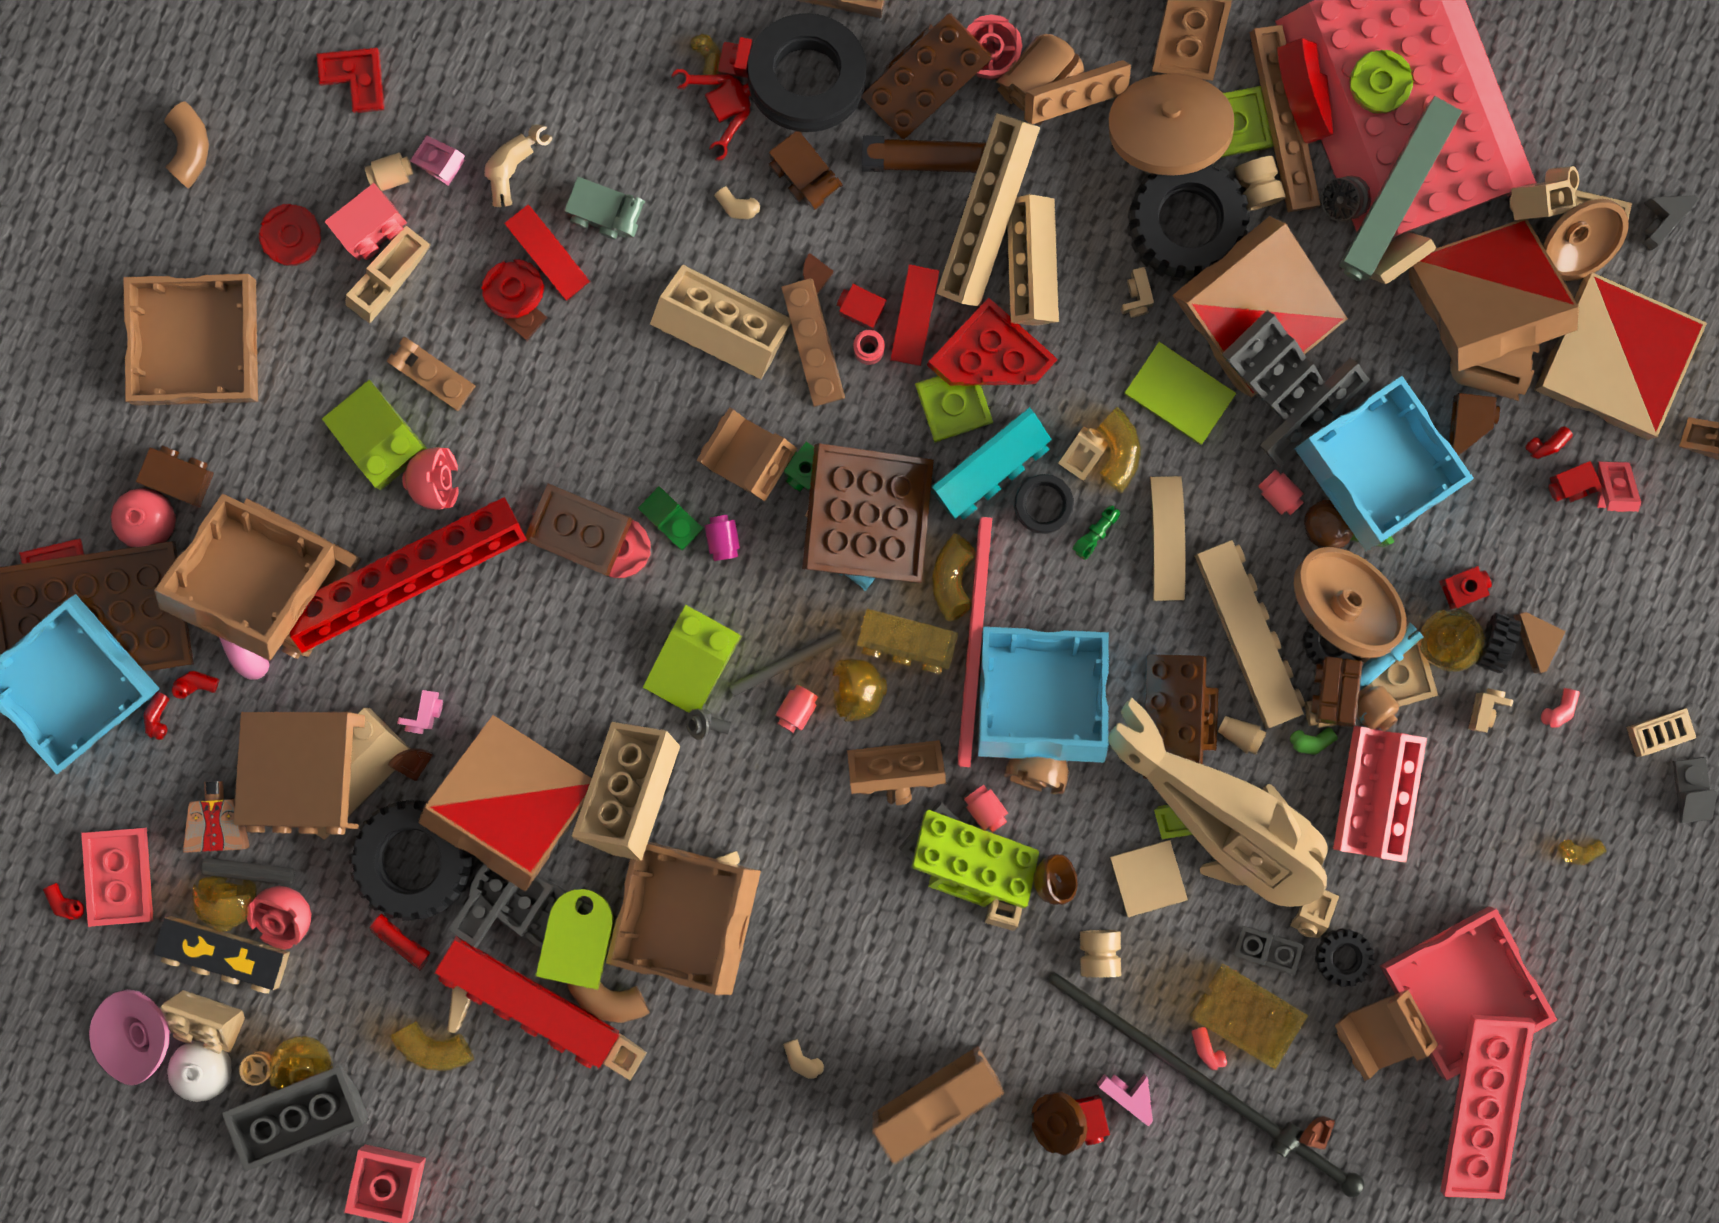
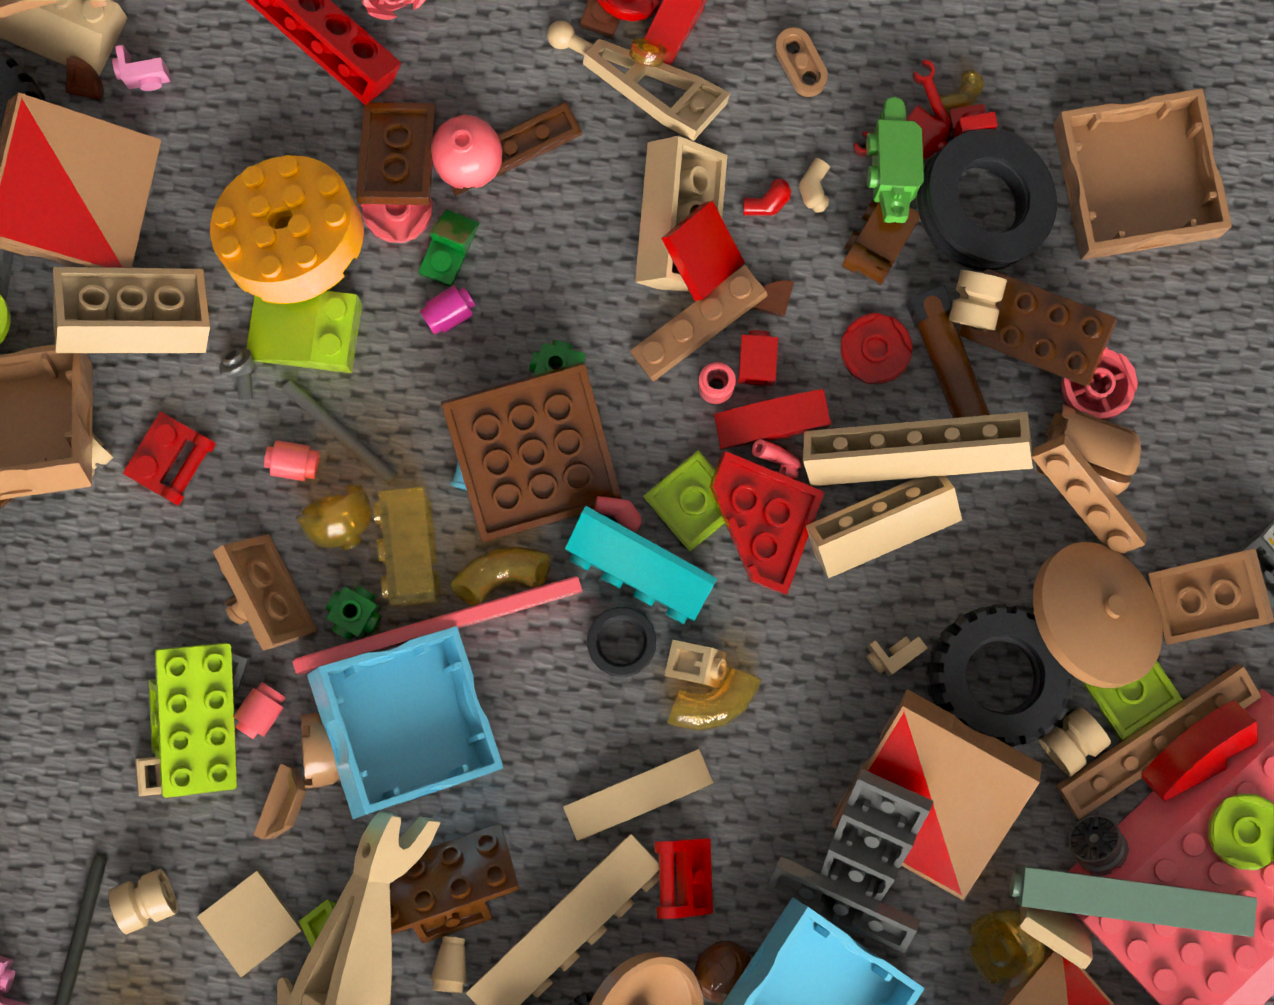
camera: 65 degrees right, 5 degrees down
(574, 294) = (647, 52): none -> clear yellow tile
(579, 644) = (286, 229): none -> light orange brick
(599, 473) = (466, 152): none -> coral cylinder
(604, 209) = (752, 46): sand green hinge -> none
(607, 436) = (535, 138): none -> reddish brown tile
(630, 173) = (802, 63): none -> medium nougat plate
(639, 278) = (687, 116): none -> tan plate
(736, 242) = (771, 202): none -> red arm
(746, 454) = (547, 297): medium nougat panel -> none
(747, 814) = (159, 452): none -> red plate
(749, 132) = (895, 161): none -> bright green hinge
(758, 314) = (703, 250): none -> red tile
(887, 114) = (977, 299): none -> tan wheel
(895, 216) = (872, 360): none -> red tile
(927, 710) = (366, 618): none -> green brick
(941, 462) = (621, 510): none -> coral arm
(942, 323) = (774, 453): none -> coral arm
(1047, 885) = (197, 816): reddish brown piece -> none
(1067, 817) = (282, 803): none -> medium nougat slope
(1085, 545) = (596, 707): green piece -> none
(1180, 393) = (804, 745): lime tile -> none
(1249, 520) = (692, 878): none -> red plate
(1281, 493) = (738, 903): coral brick -> none
(1397, 303) = (1005, 950): none -> clear yellow cylinder

